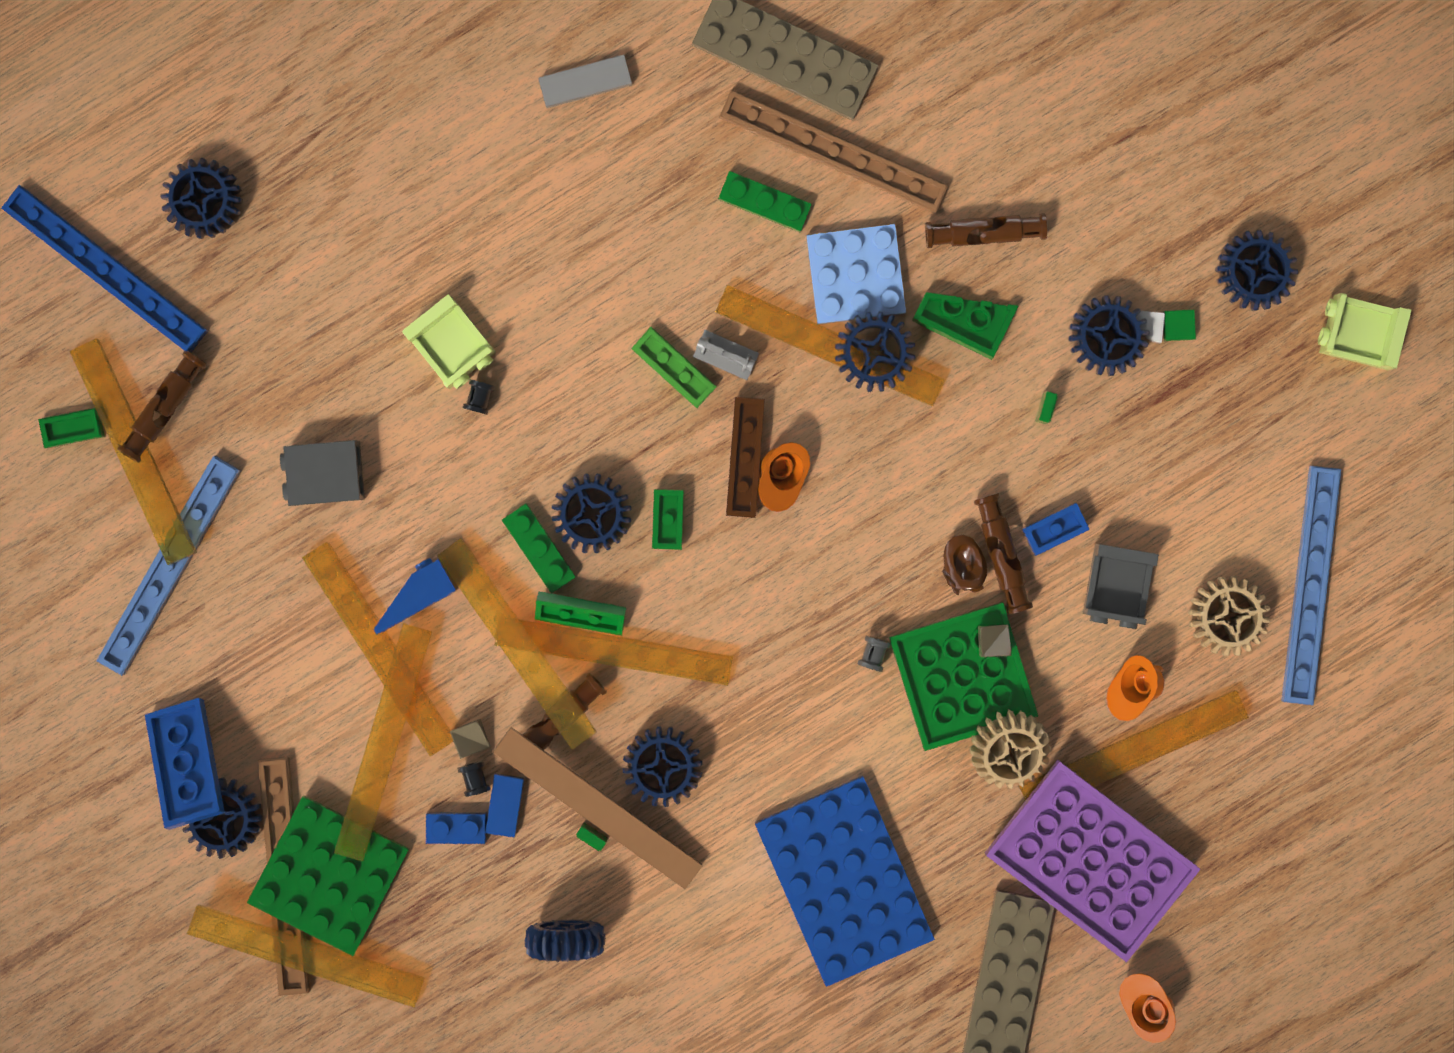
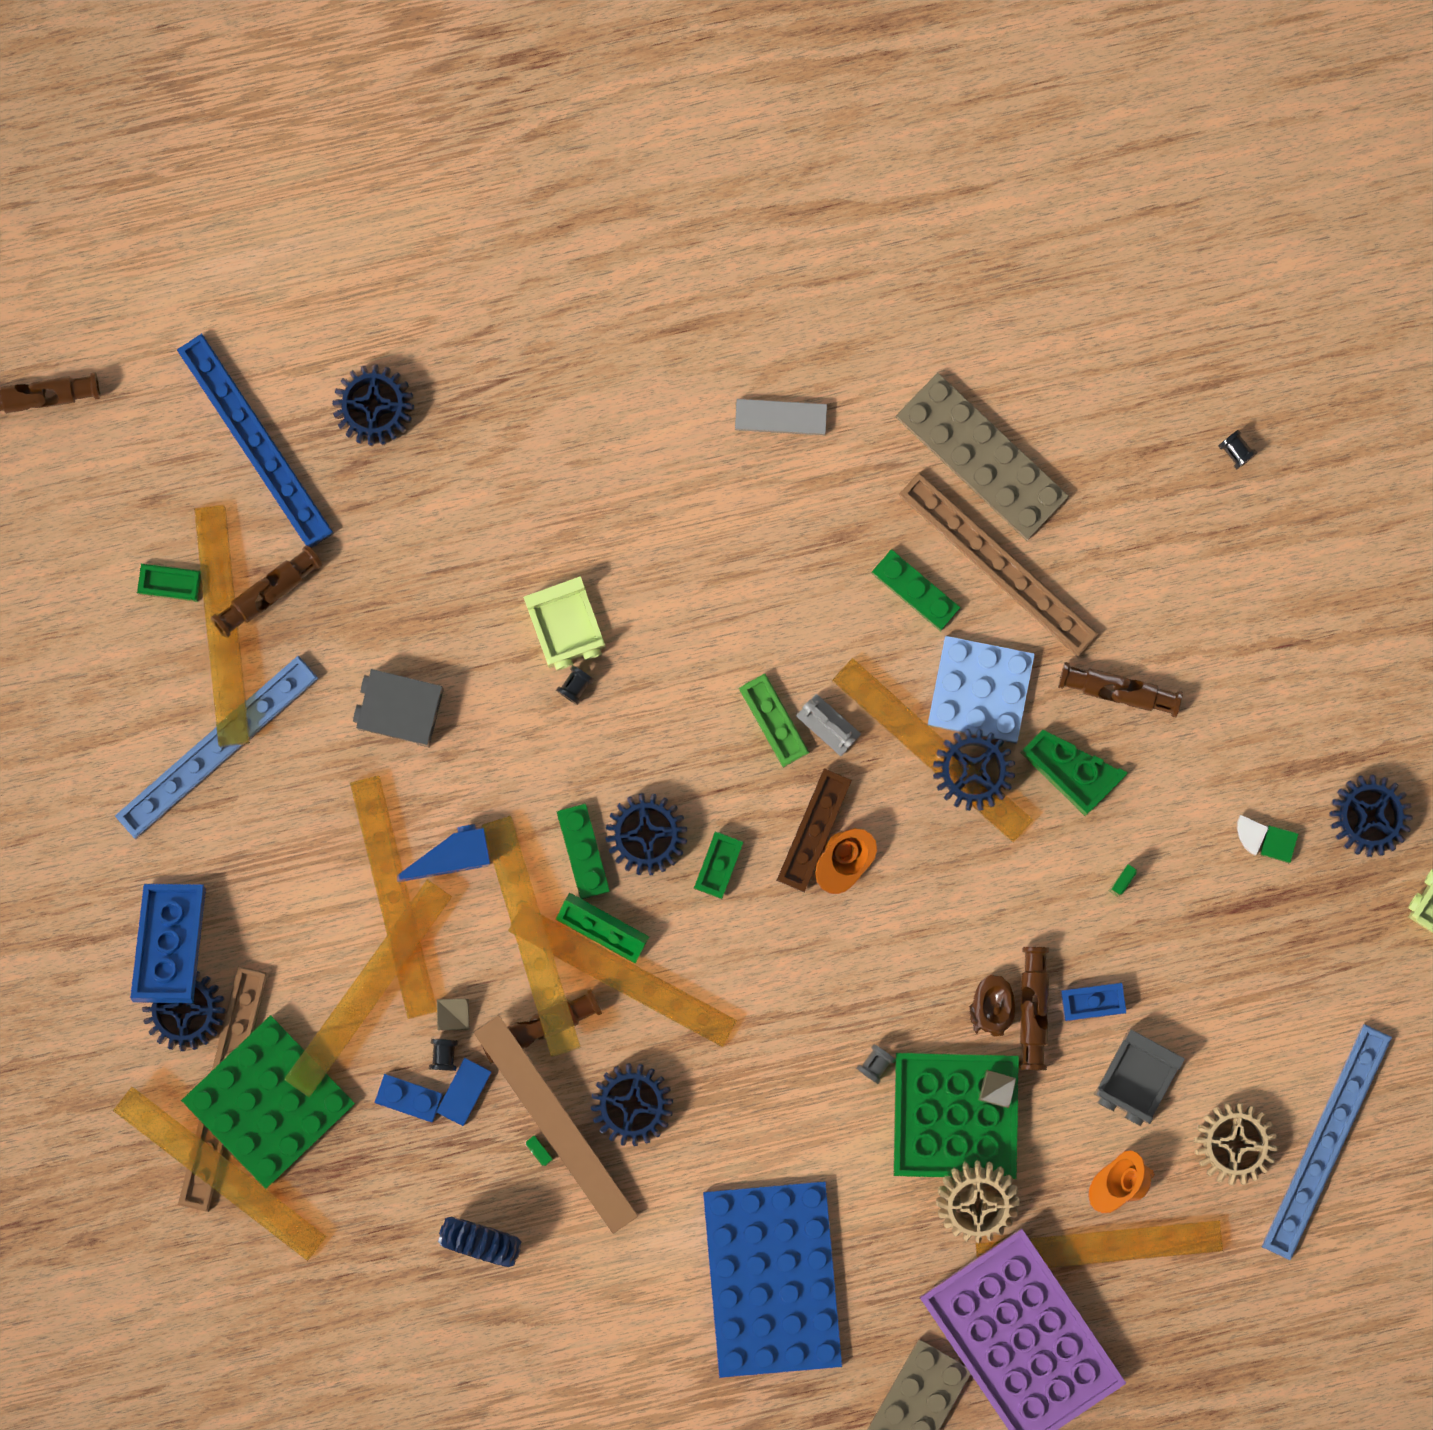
camera: 20 degrees right, 5 degrees down
(1112, 322) = (1194, 822): dark blue gear -> none

